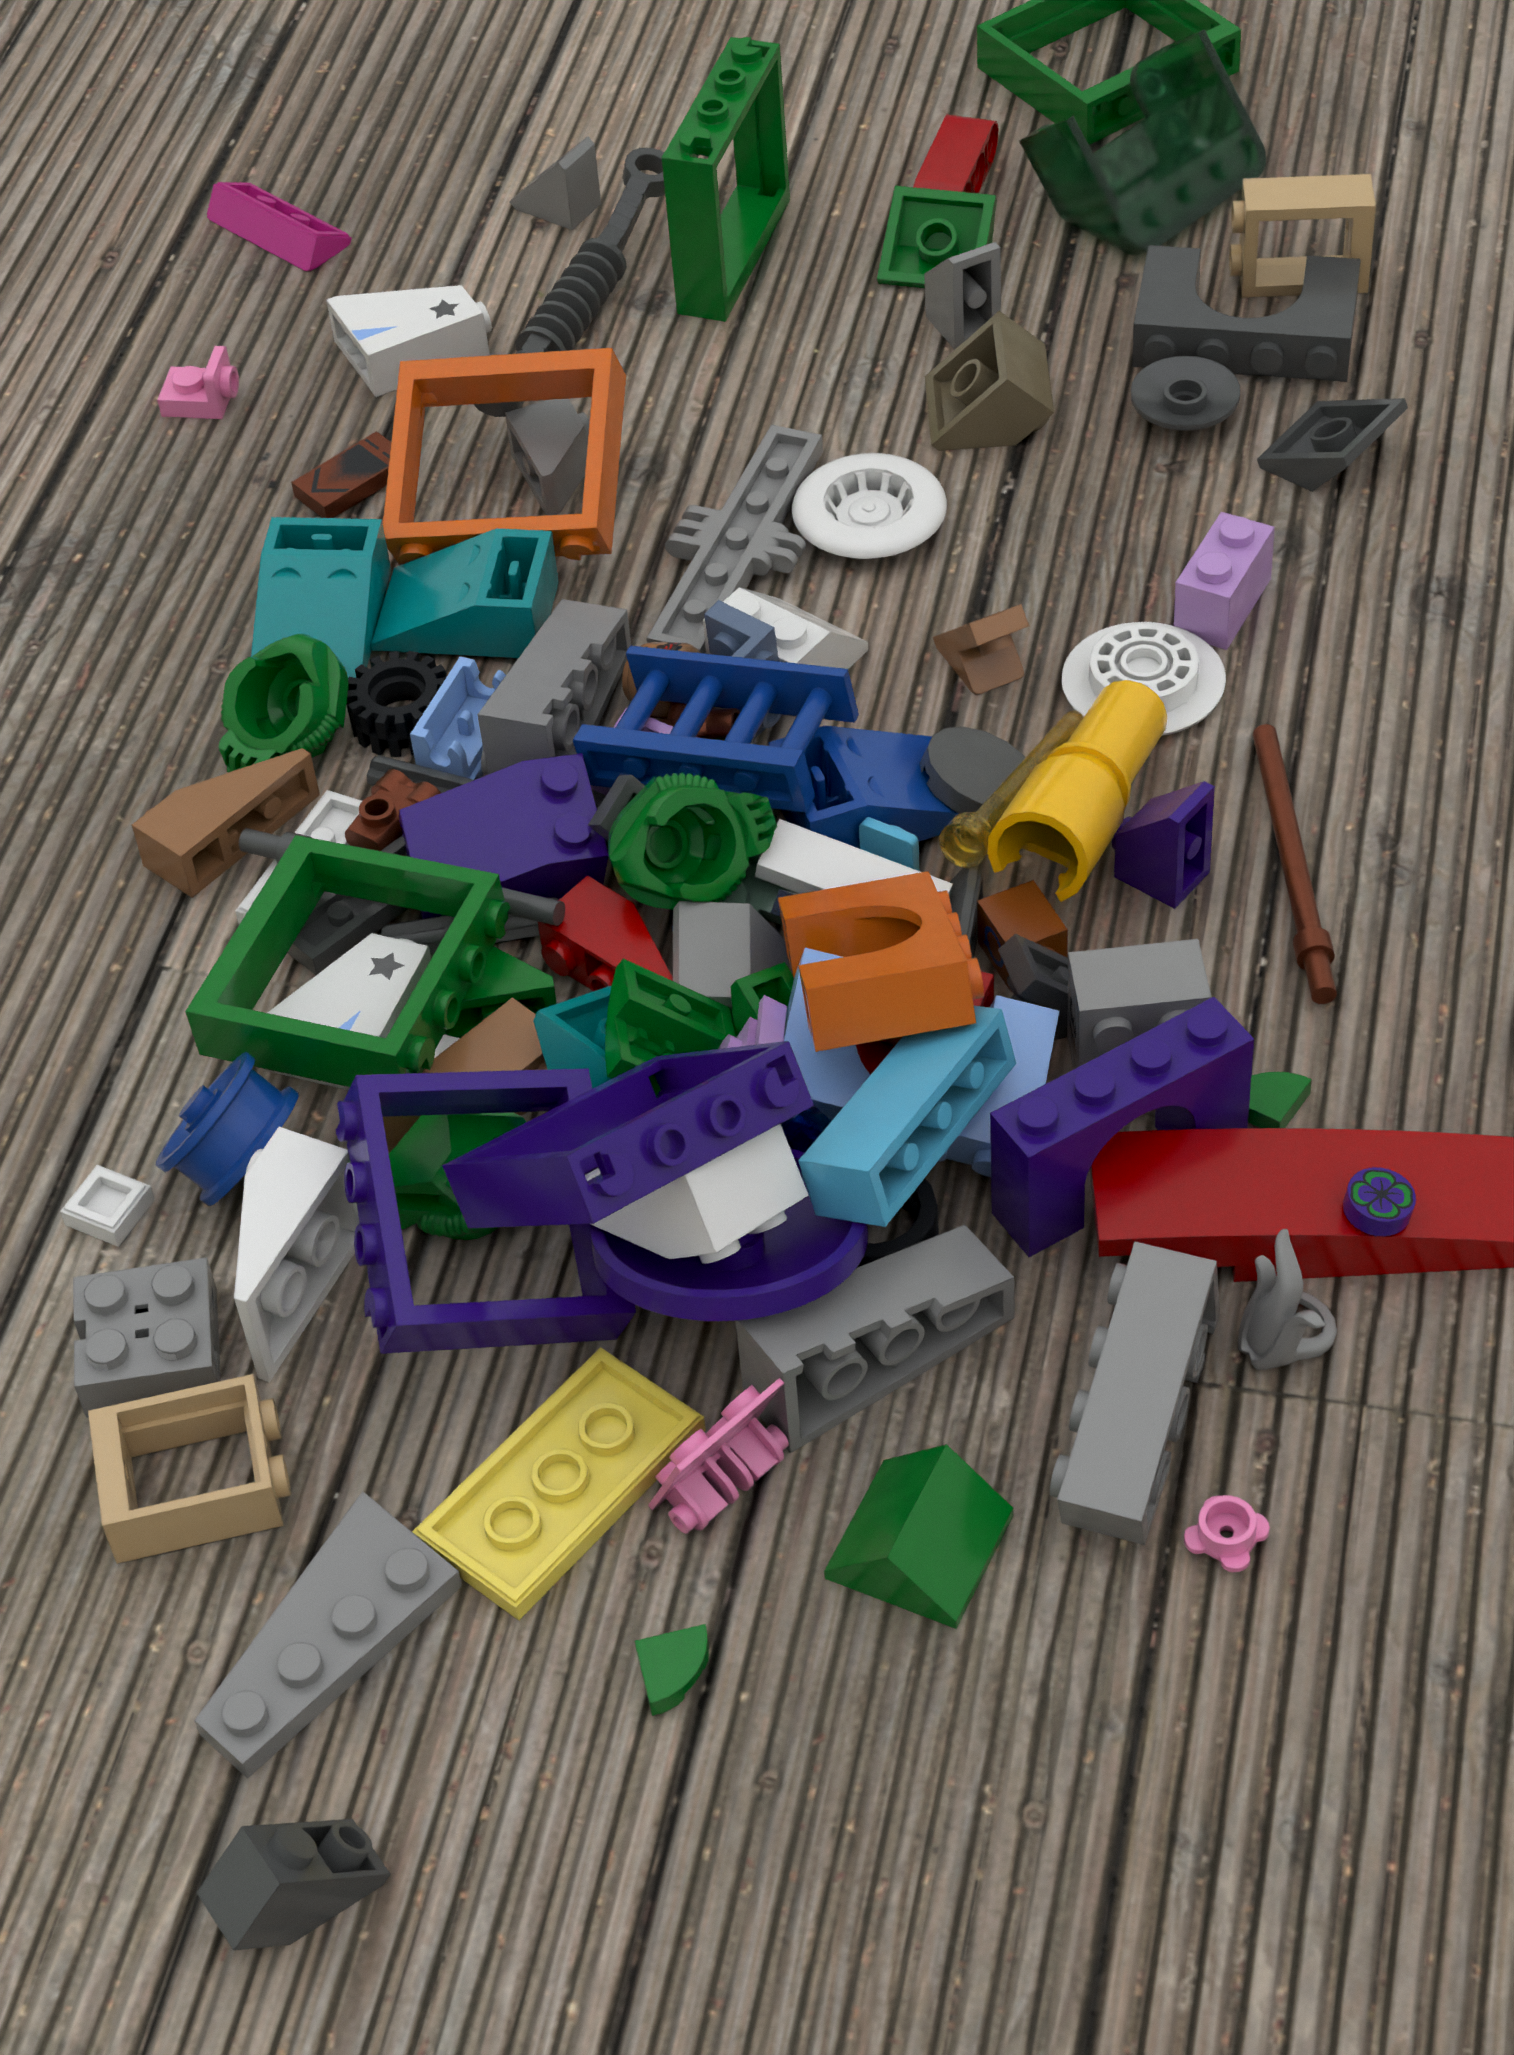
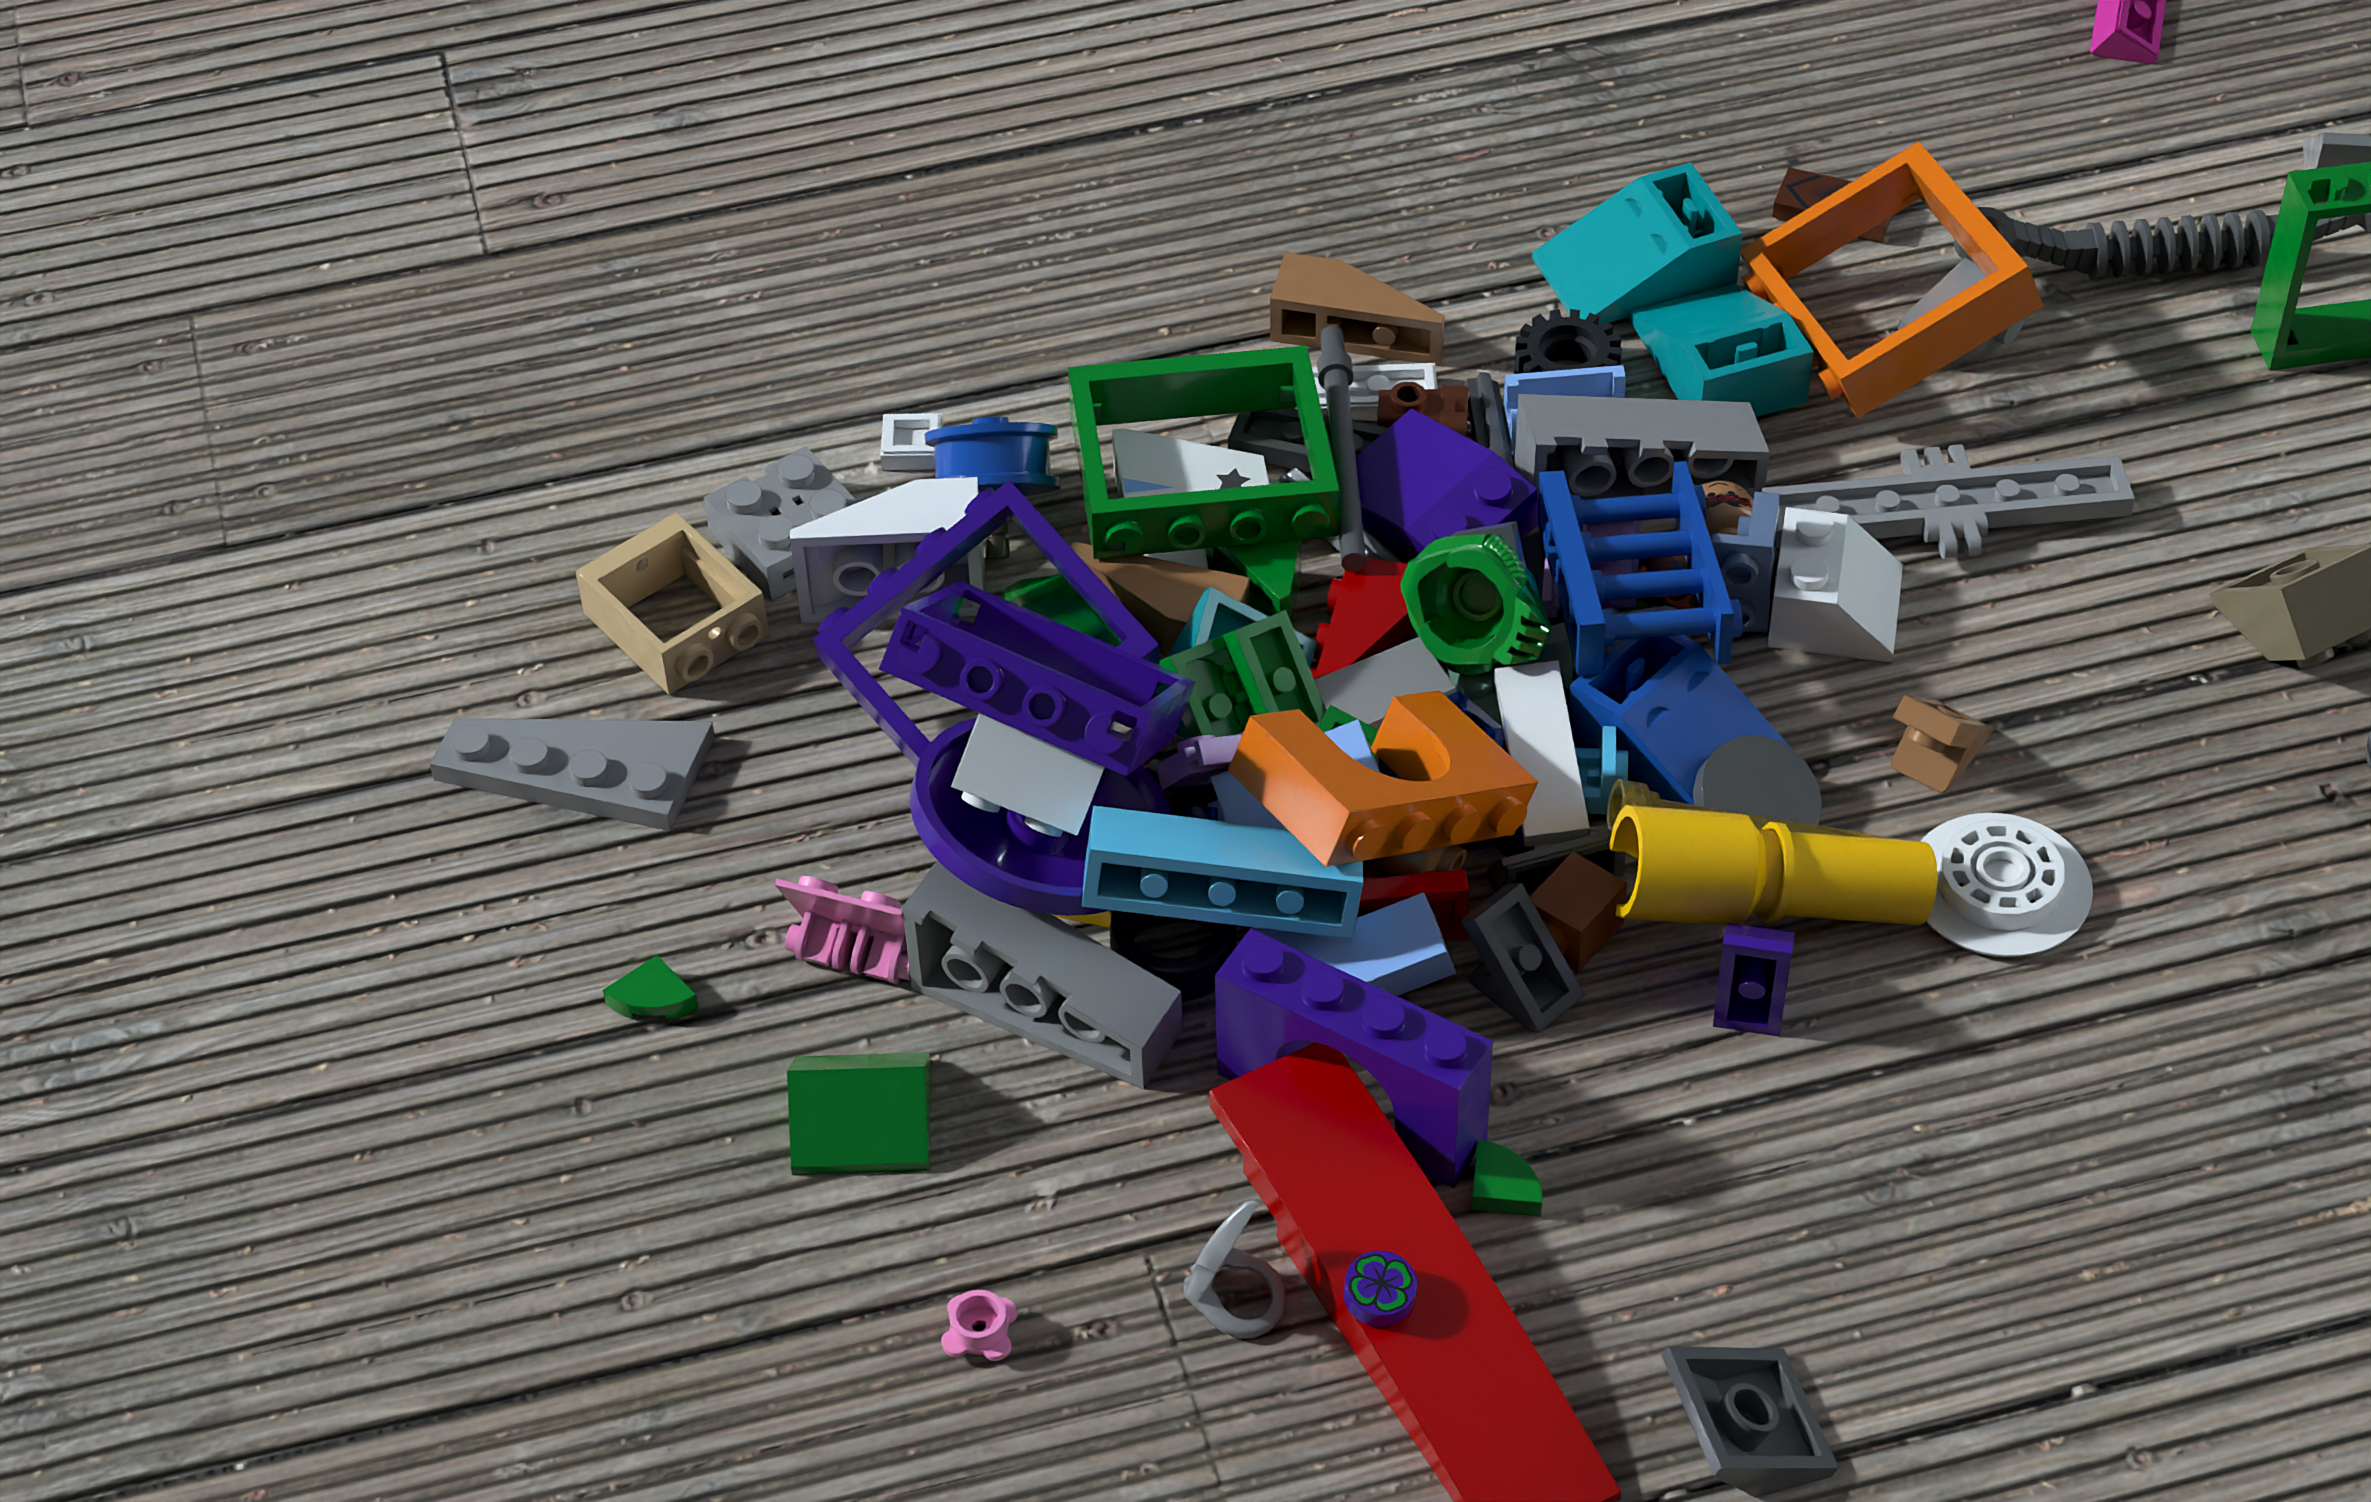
camera: 60 degrees right, 0 degrees up
(200, 391) = (1865, 54): bright pink bracket -> none
(283, 702) = (1518, 284): green helmet -> none
(289, 1880) = (340, 837): dark grey slope -> none
(406, 325) = (2039, 153): white slope -> none
(558, 1482) = (750, 832): light yellow tile -> none
(869, 506) = (2069, 590): white wheel -> none
(1128, 992) = (1508, 998): light grey brick -> none
(1137, 1393) = (1075, 1193): light grey wedge -> none
(1224, 579) = (2167, 888): lavender brick -> none
(1312, 942) = (1723, 1145): copper bar -> none

